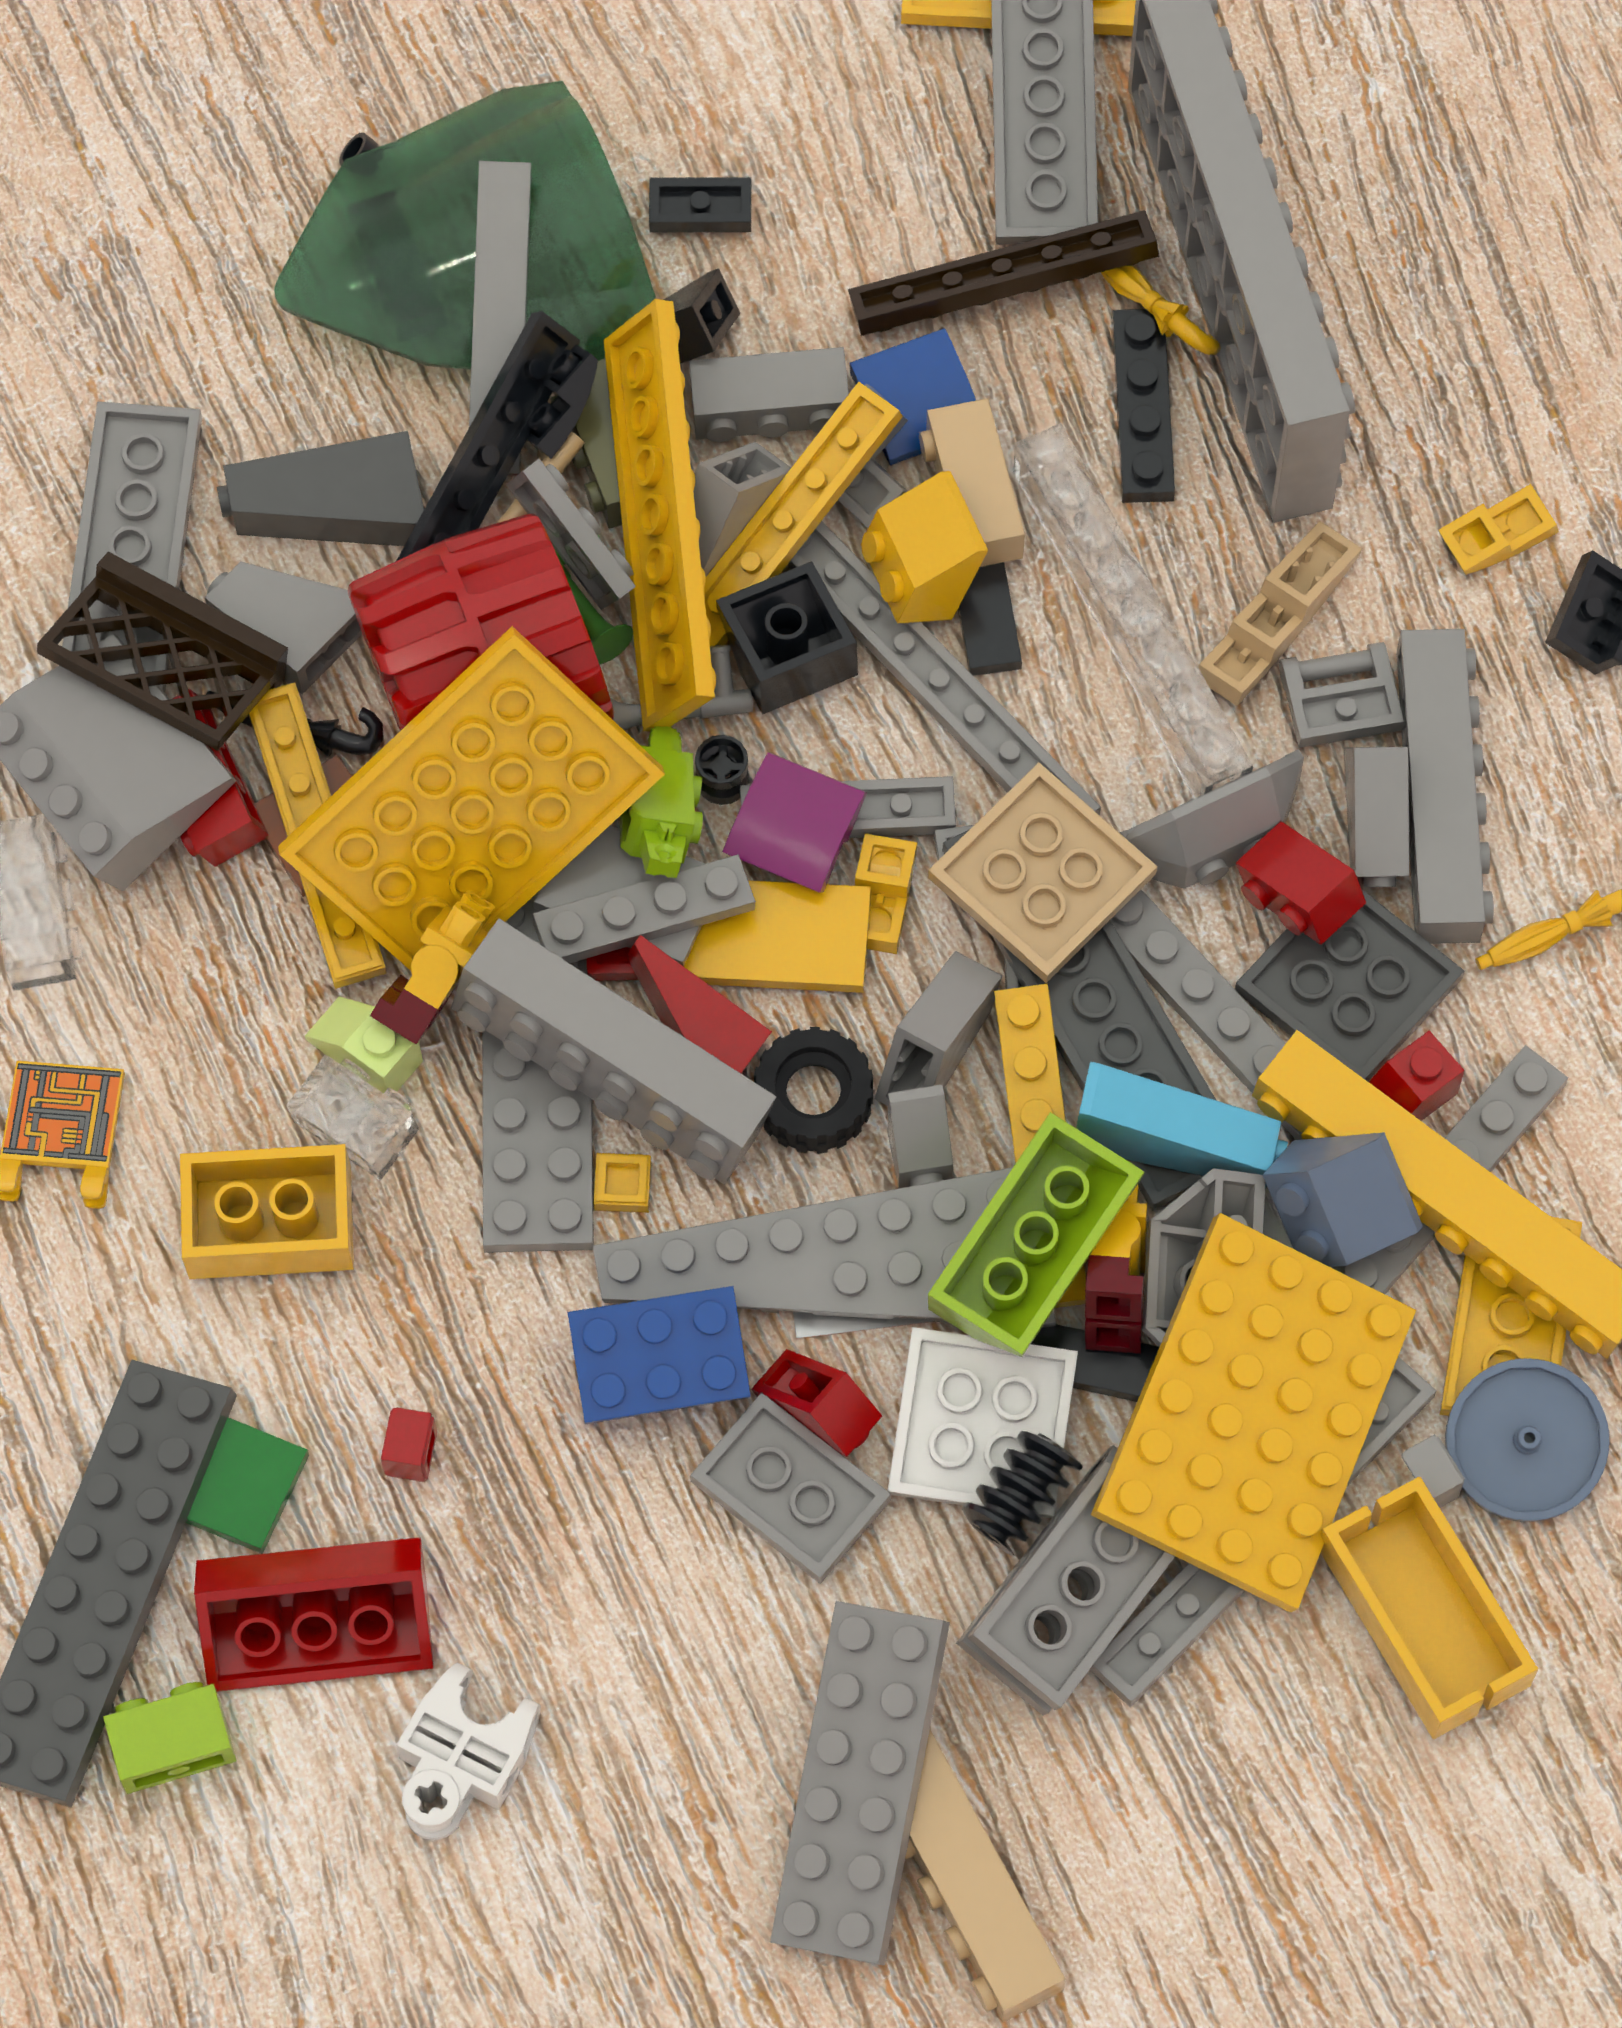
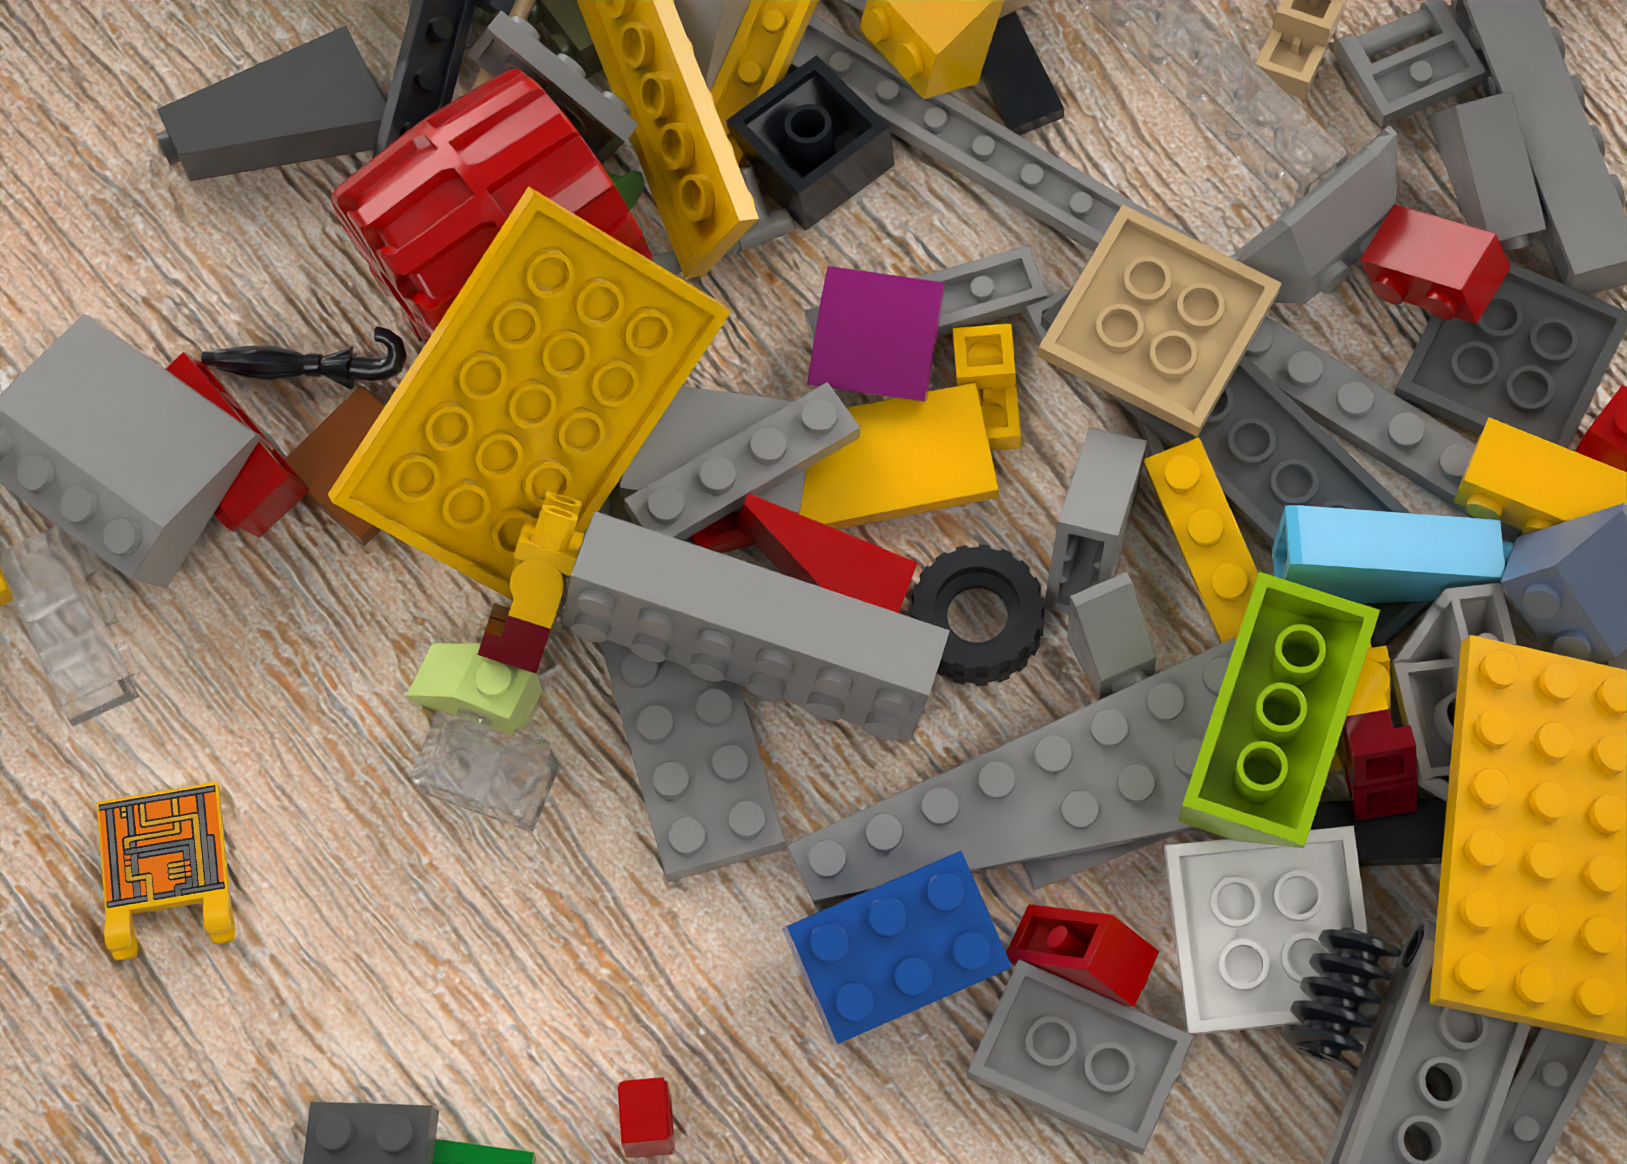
camera: 10 degrees left, 0 degrees up
(136, 503) = (77, 203): light grey plate -> none
(185, 626) = (160, 286): dark brown fence -> none
(266, 1211) = (417, 899): yellow brick -> none
(297, 612) = (266, 256): light grey slope -> none
(299, 792) = (332, 435): yellow tile -> none
(622, 1182) = (798, 767): yellow tile -> none
(665, 816) = (739, 363): lime hinge -> none
(720, 757) = (777, 285): black wheel -> none

